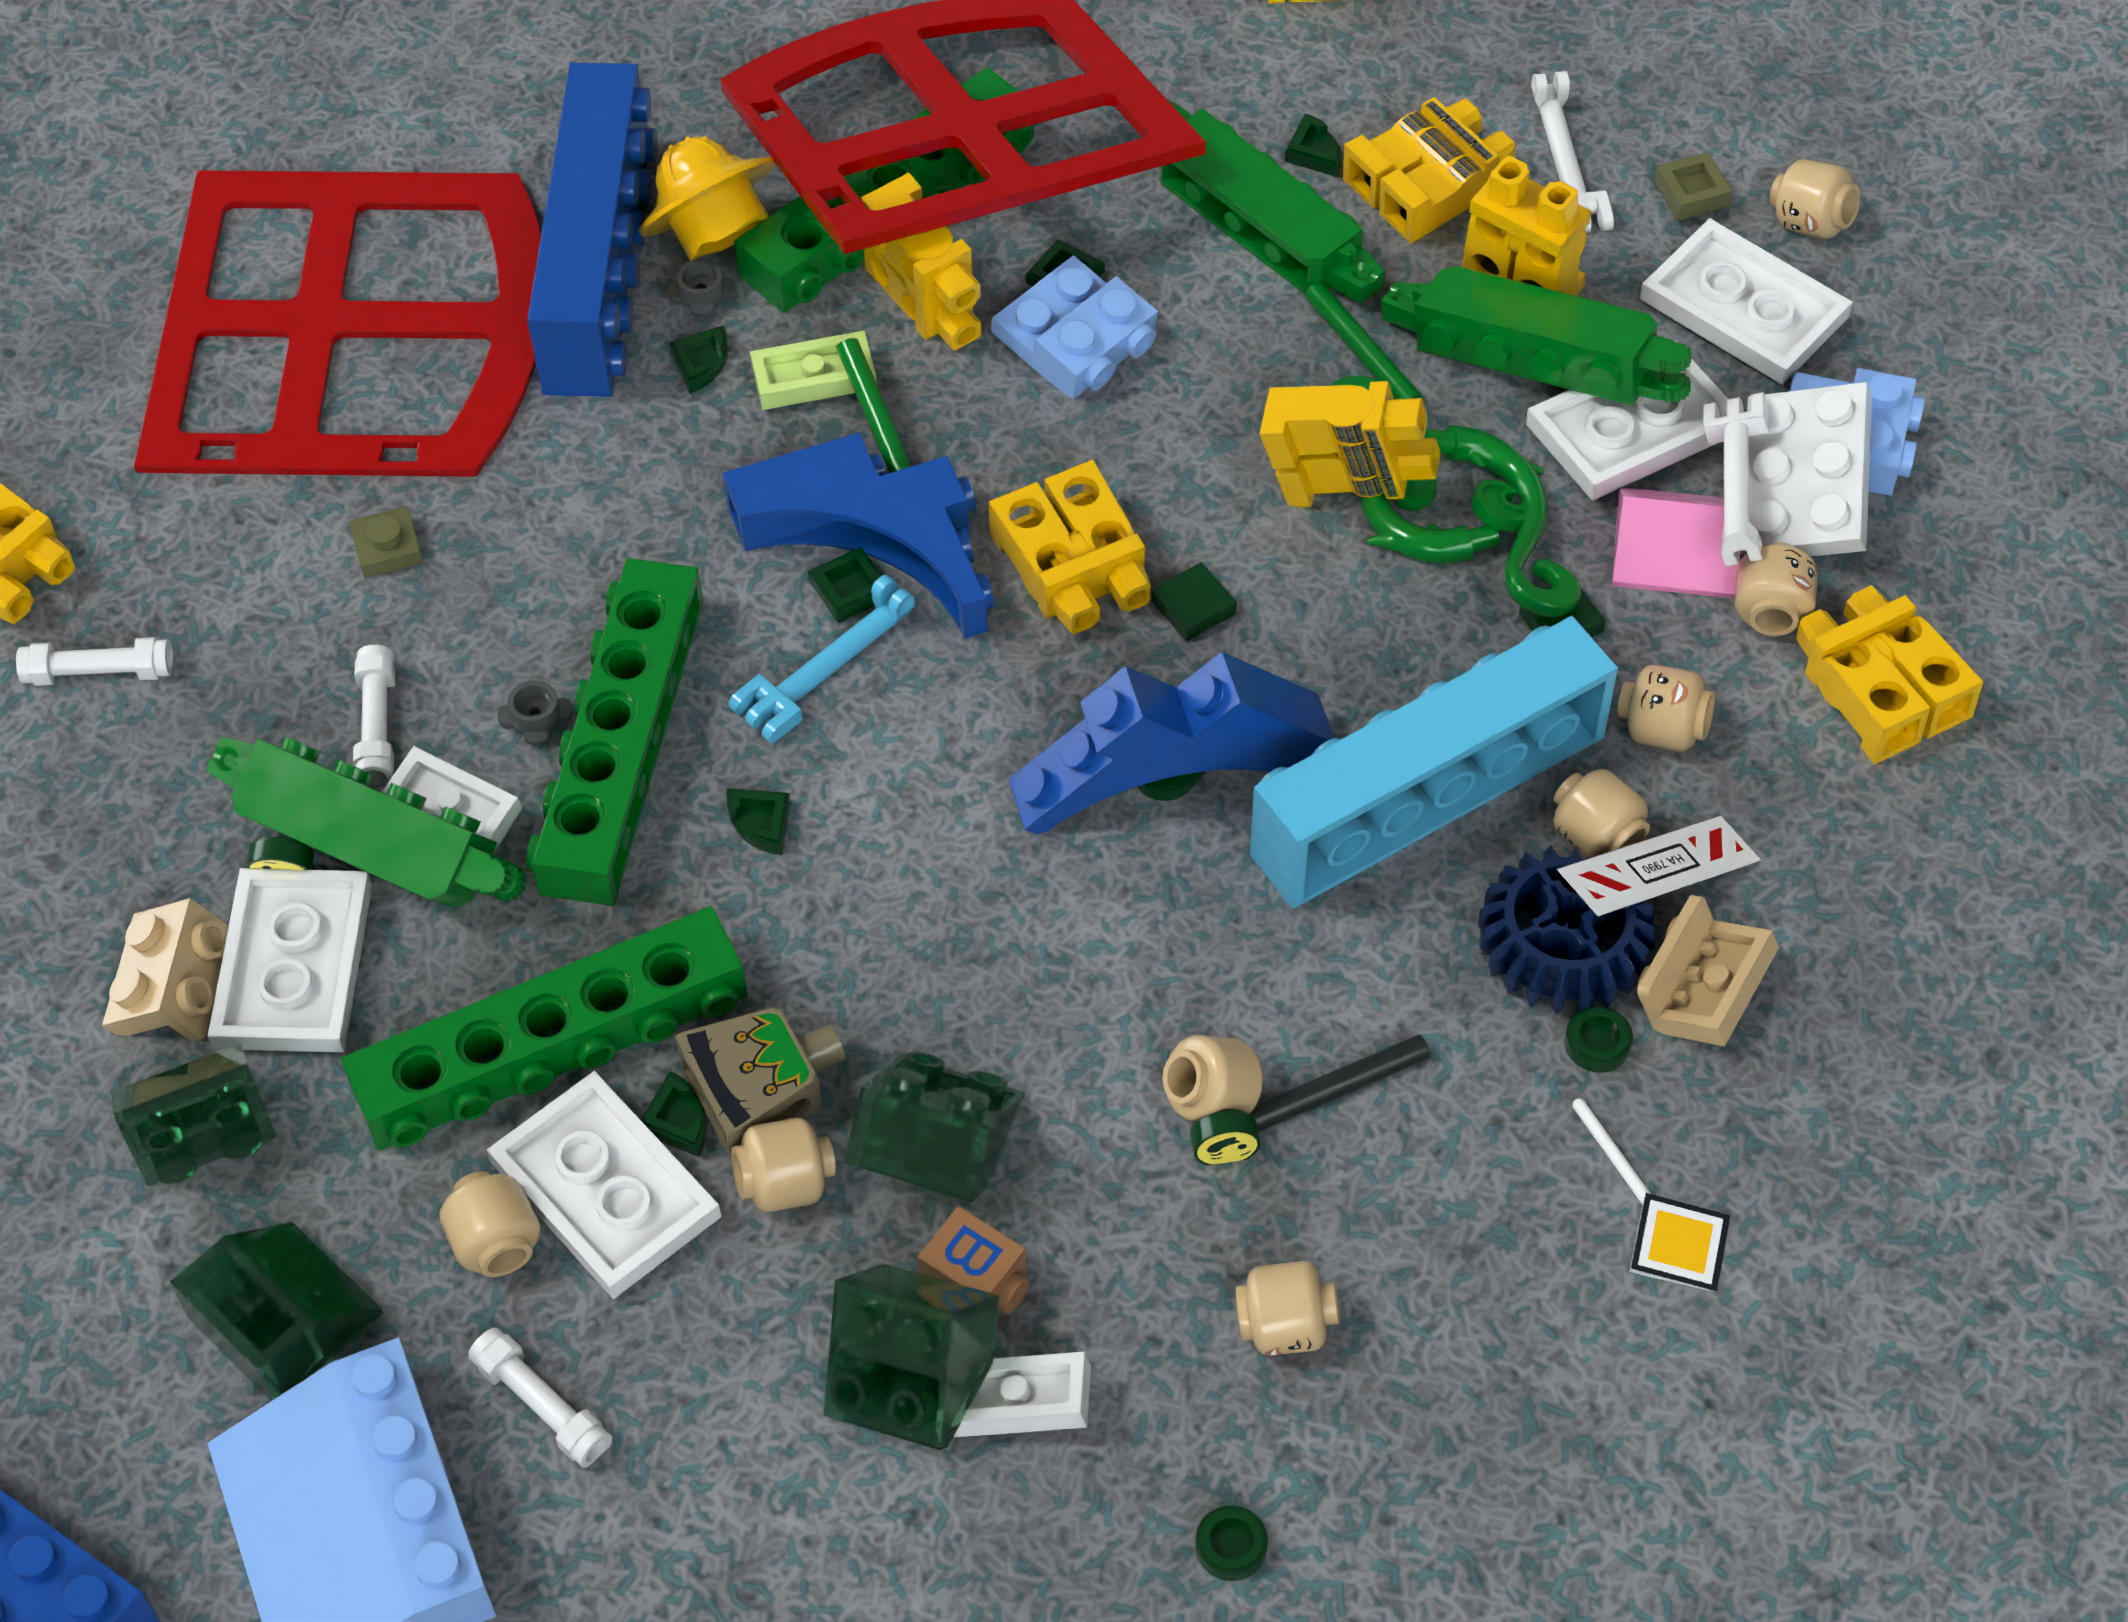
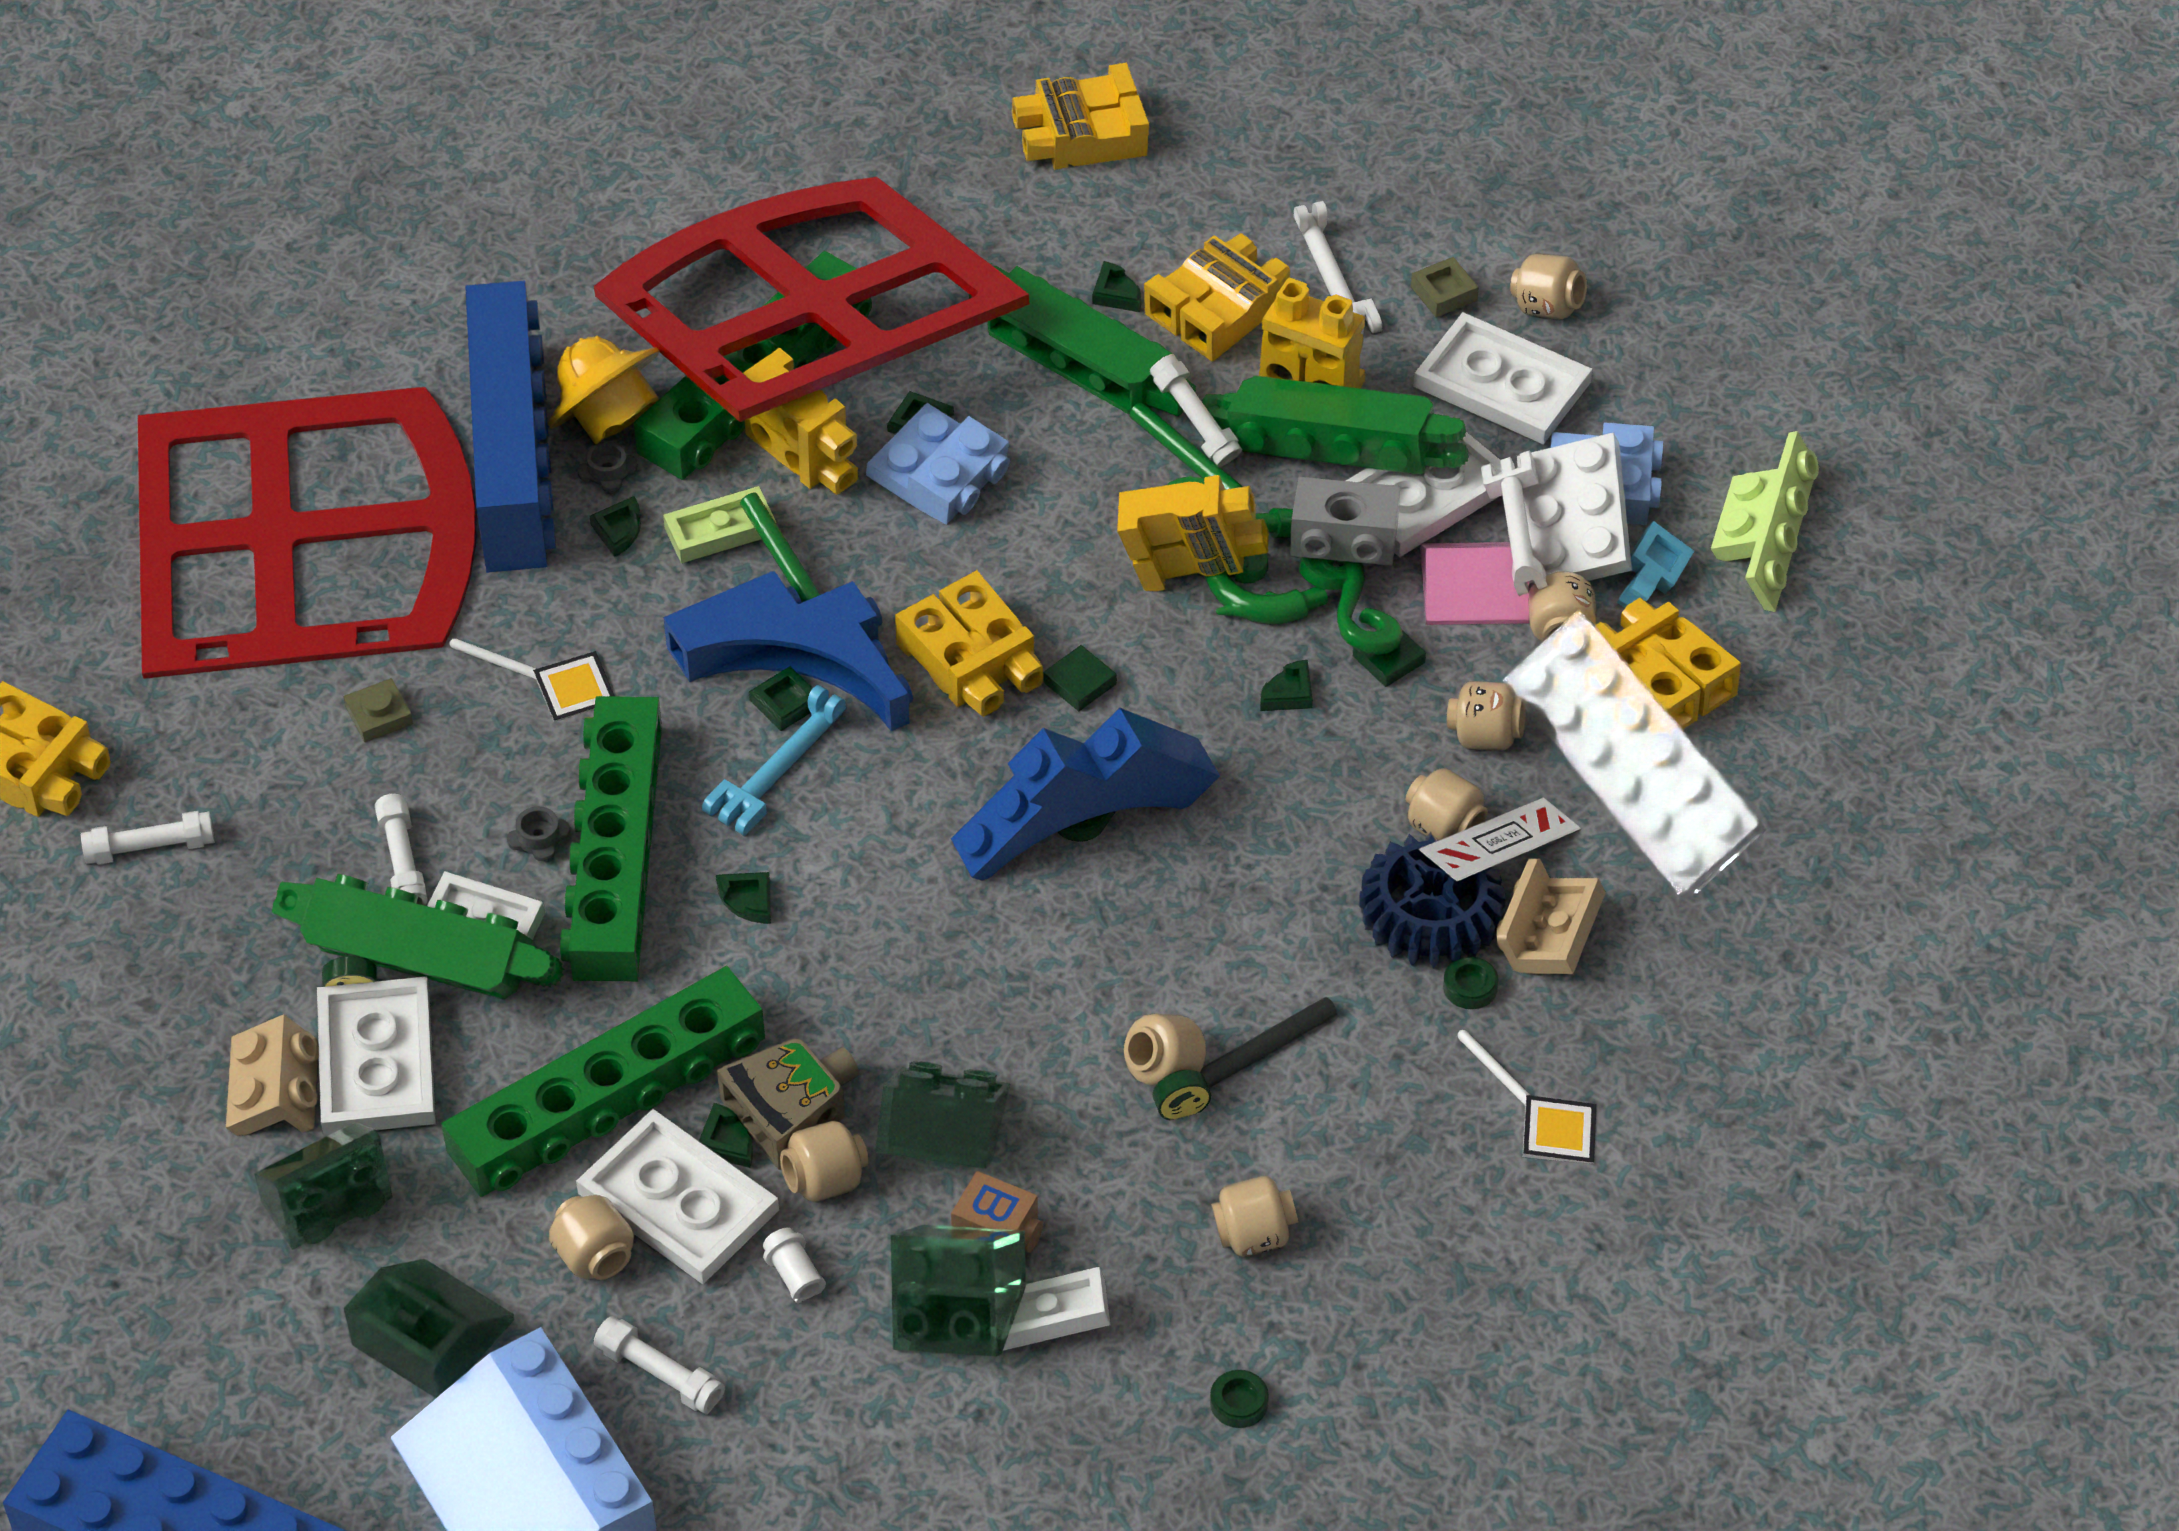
camera: 10 degrees left, 5 degrees down
(600, 536) = (566, 685): none -> piece
(718, 1275) = (787, 1253): none -> white pin
(1356, 257) = (1171, 376): none -> white bar
(1430, 760) = (1301, 779): medium azure brick -> none
(1436, 644) = (1288, 689): none -> dark green tile
(1532, 451) = (1345, 521): none -> light grey brick
(1839, 782) = (1634, 755): none -> clear plate
(1898, 546) = (1657, 564): none -> medium azure plate
(2034, 506) = (1765, 519): none -> yellowish green bracket

